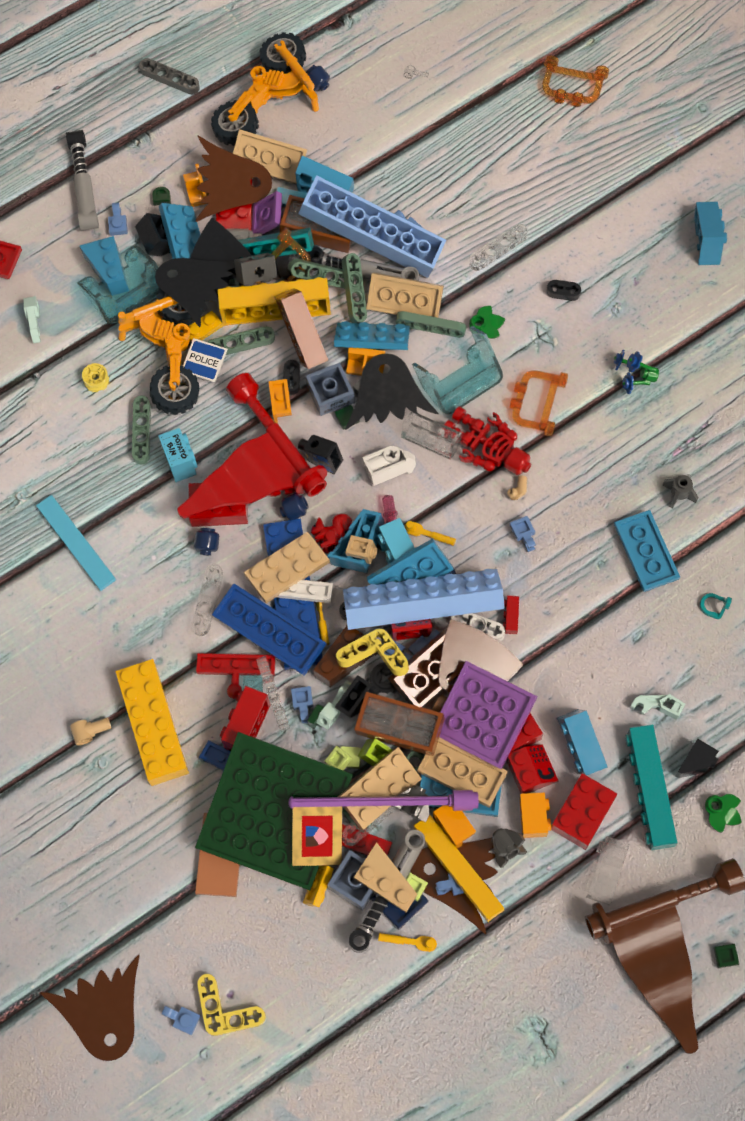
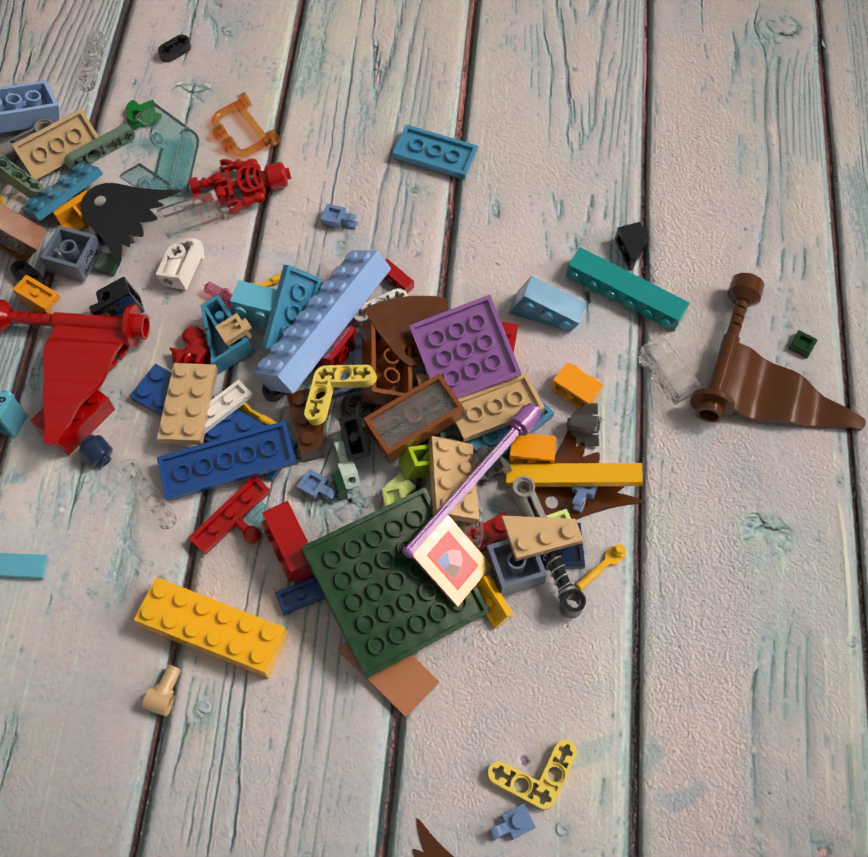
camera: 55 degrees left, 5 degrees down
(273, 693) = (277, 497): clear beam -> none
(293, 506) = (140, 359): dark blue head -> none
(520, 490) = (300, 194): tan arm -> none
(531, 768) = (537, 361): red slope -> none
(583, 811) = (606, 348): red brick -> none
(648, 373) = (300, 47): plant -> none
(657, 701) = (556, 240): light aqua piece -> none
(681, 488) = (410, 93): dark grey brick -> none
(726, 812) = (688, 260): green plate -> none
(727, 602) = (529, 131): teal piece -> none

